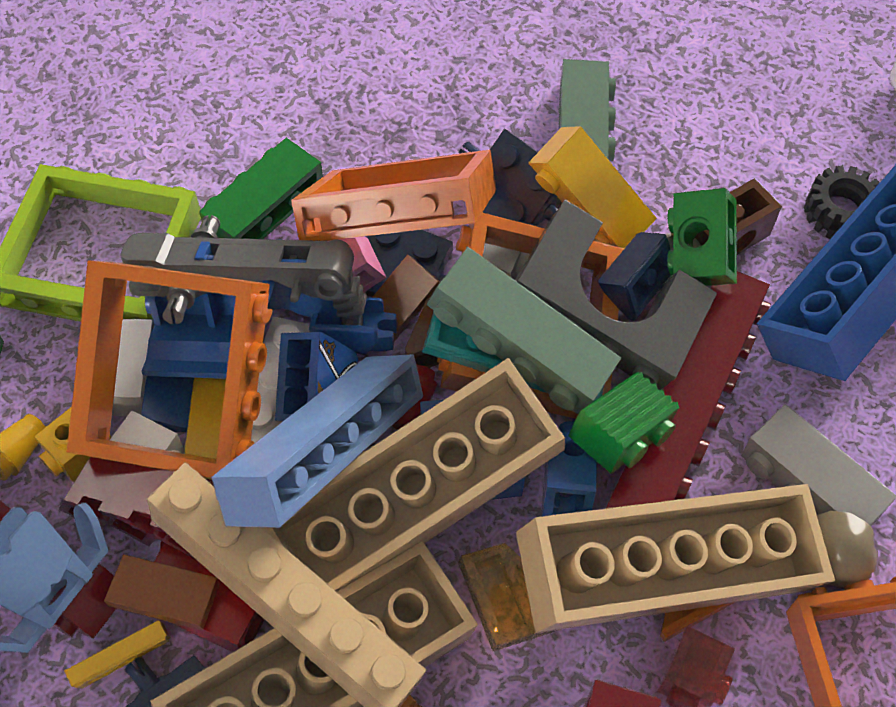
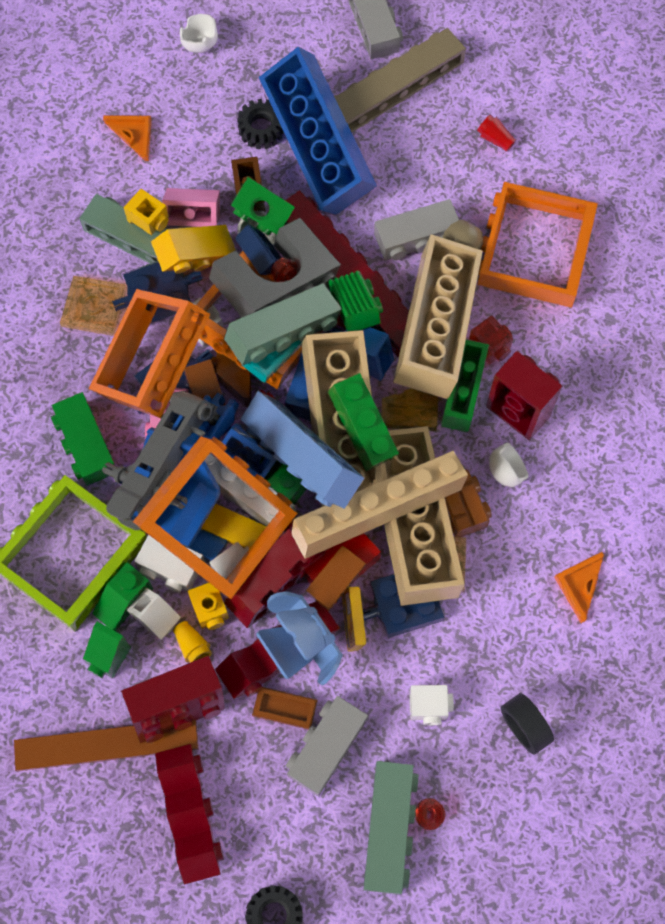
camera: 65 degrees left, 10 degrees up
(34, 377) = (154, 613): none -> white brick
(49, 332) = (119, 595): none -> green slope
(405, 501) = (363, 422): none -> green brick
(452, 124) = (91, 305): none -> clear yellow tile
(572, 659) = (462, 400): none -> green brick
(607, 124) = (146, 212): none -> yellow brick
(621, 305) = (284, 270): none -> clear red plate
(656, 168) = (192, 207): none -> bright pink brick
(731, 75) = (133, 131): none -> orange tile

